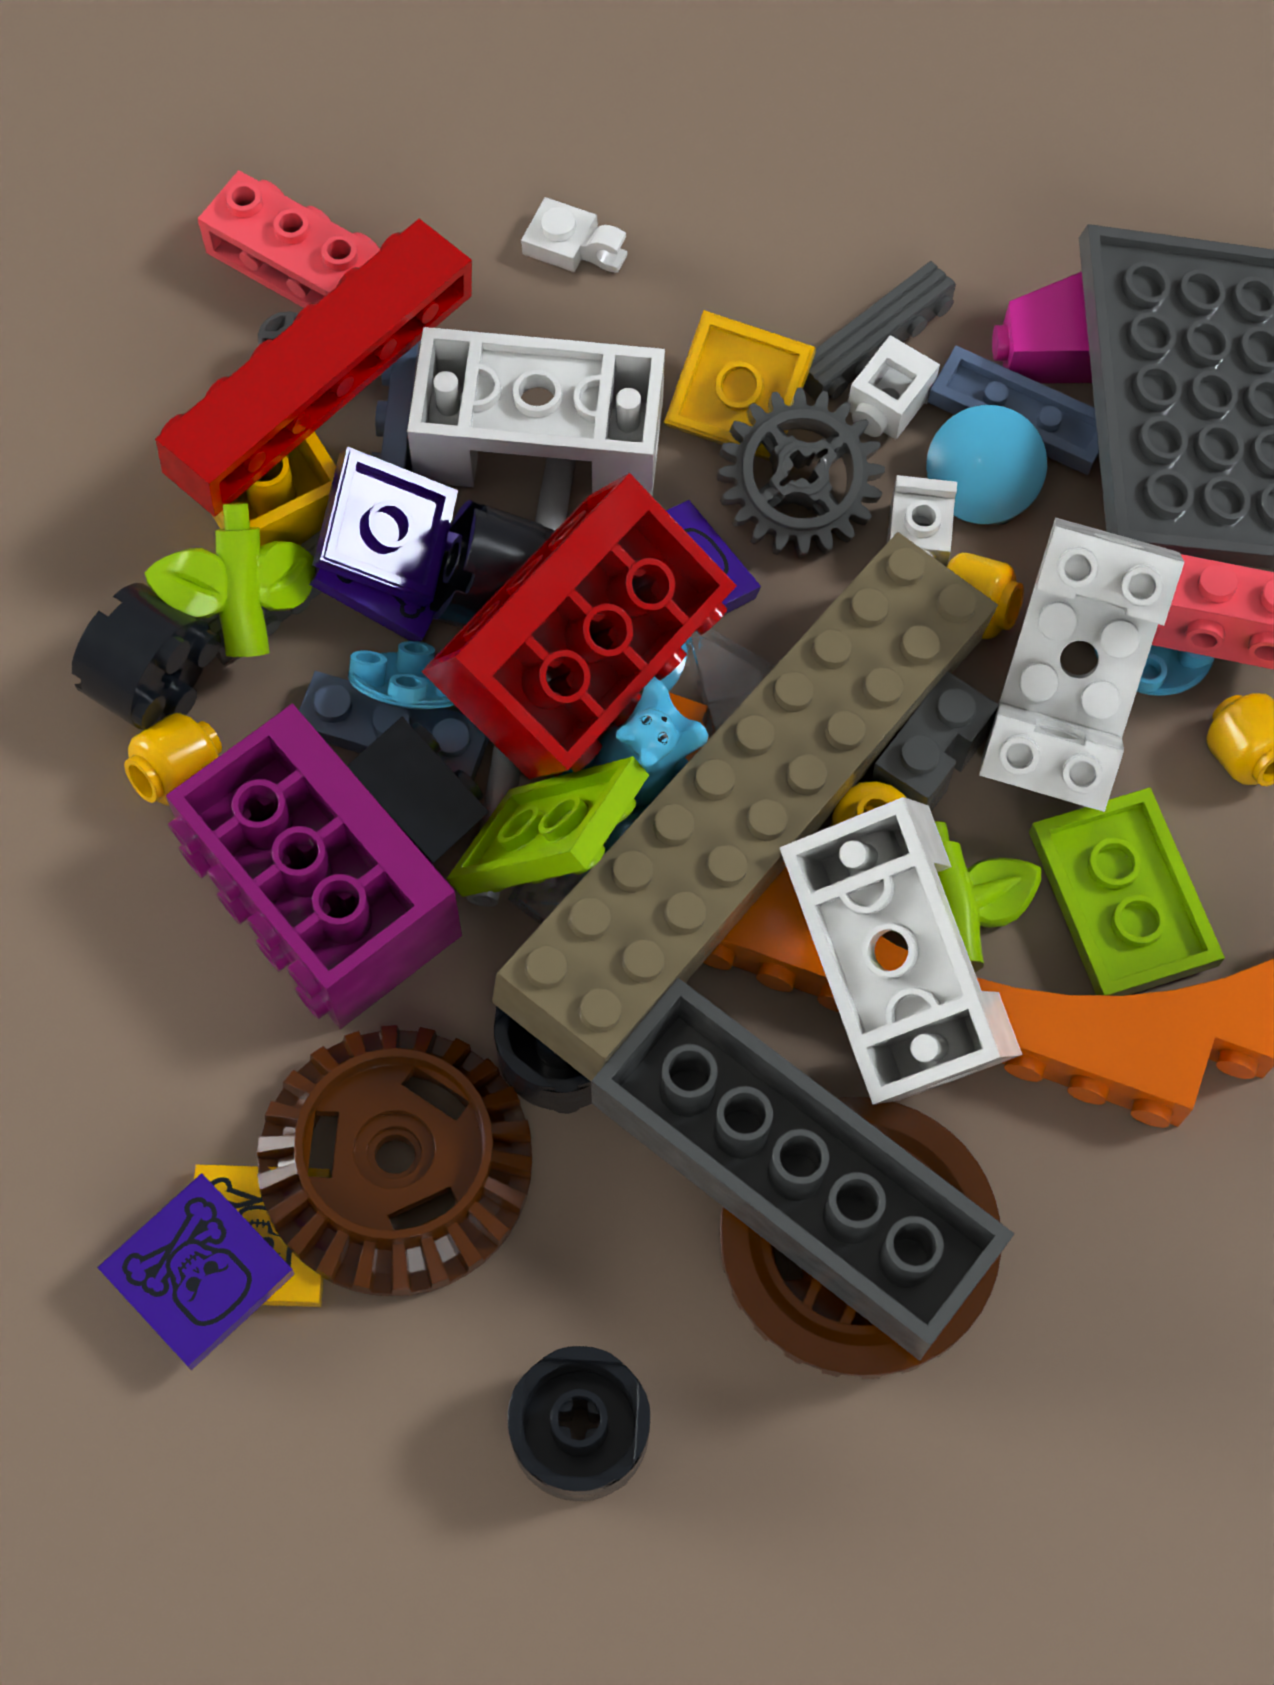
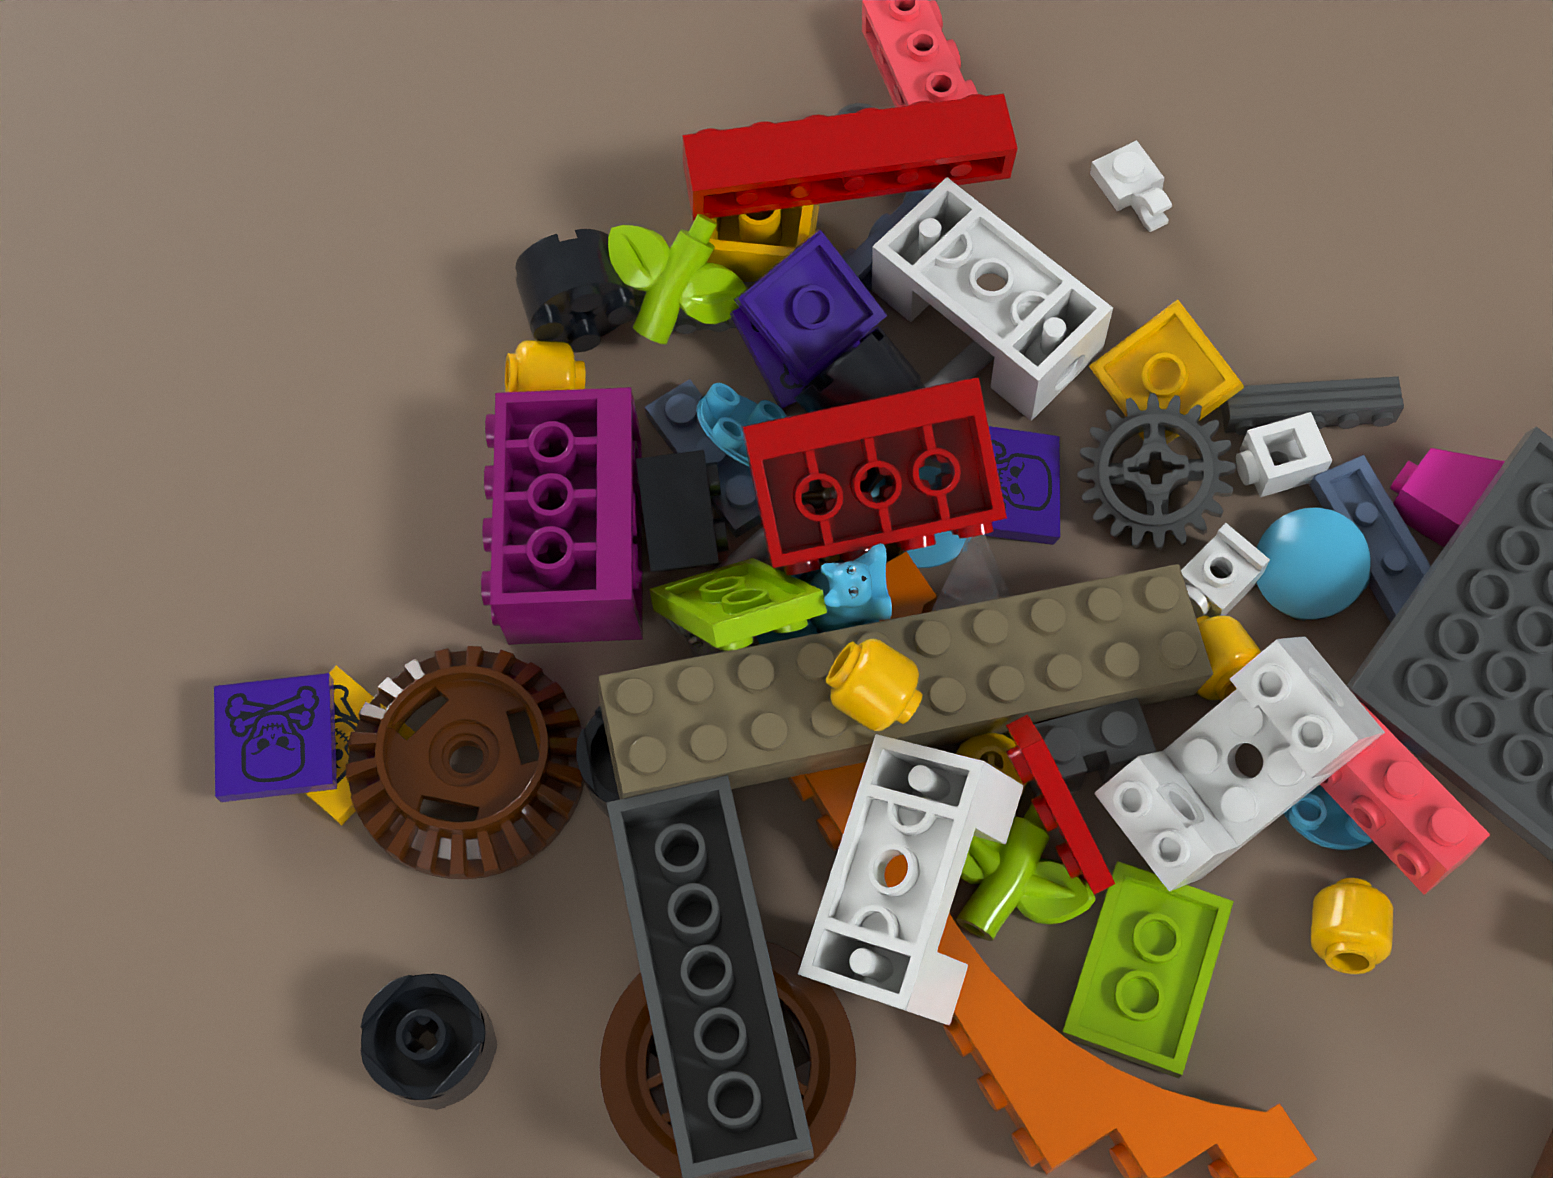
camera: 45 degrees right, 0 degrees up
(750, 803) = (874, 684): none -> yellow head
(960, 804) = (1056, 805): none -> red plate

